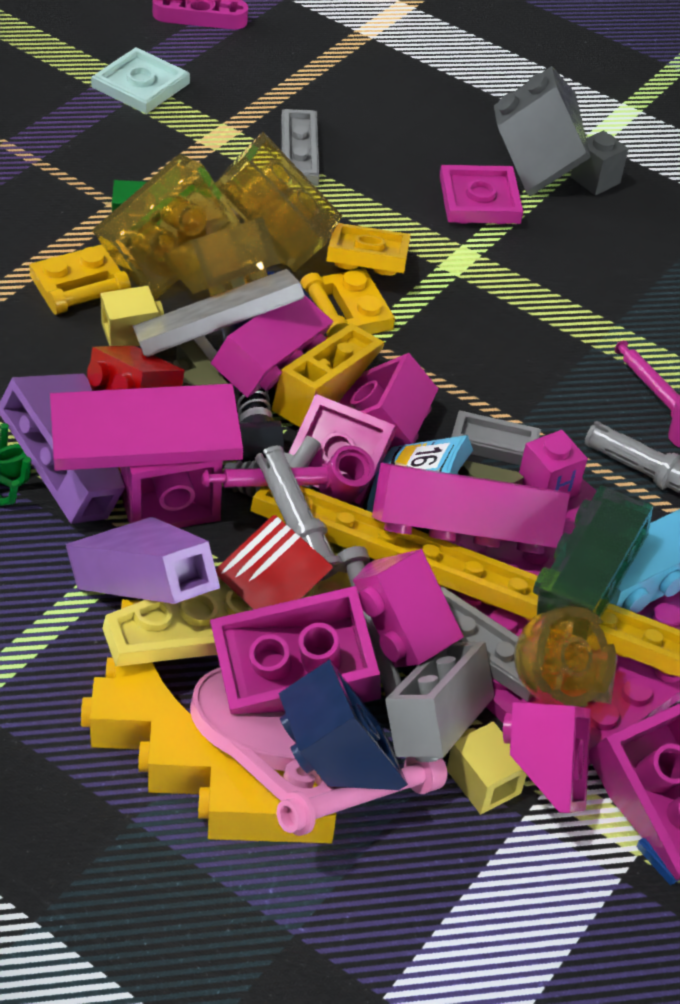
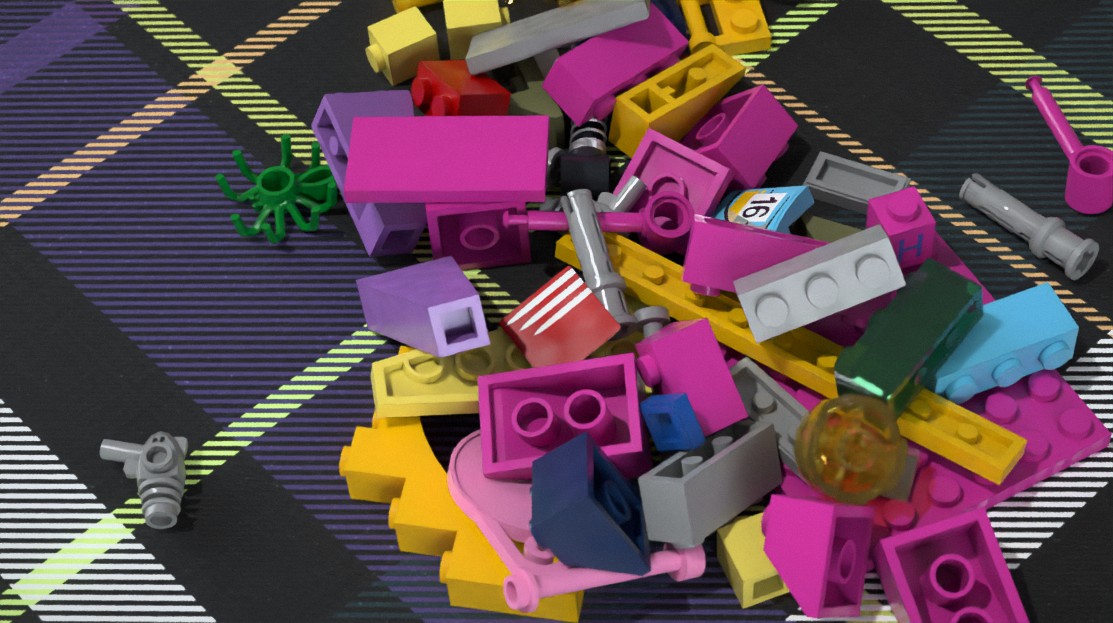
camera: 20 degrees right, 5 degrees up
(67, 337) = (400, 44): none -> light yellow brick
(401, 647) = (672, 422): none -> blue tile
(508, 514) = (819, 283): none -> light grey brick

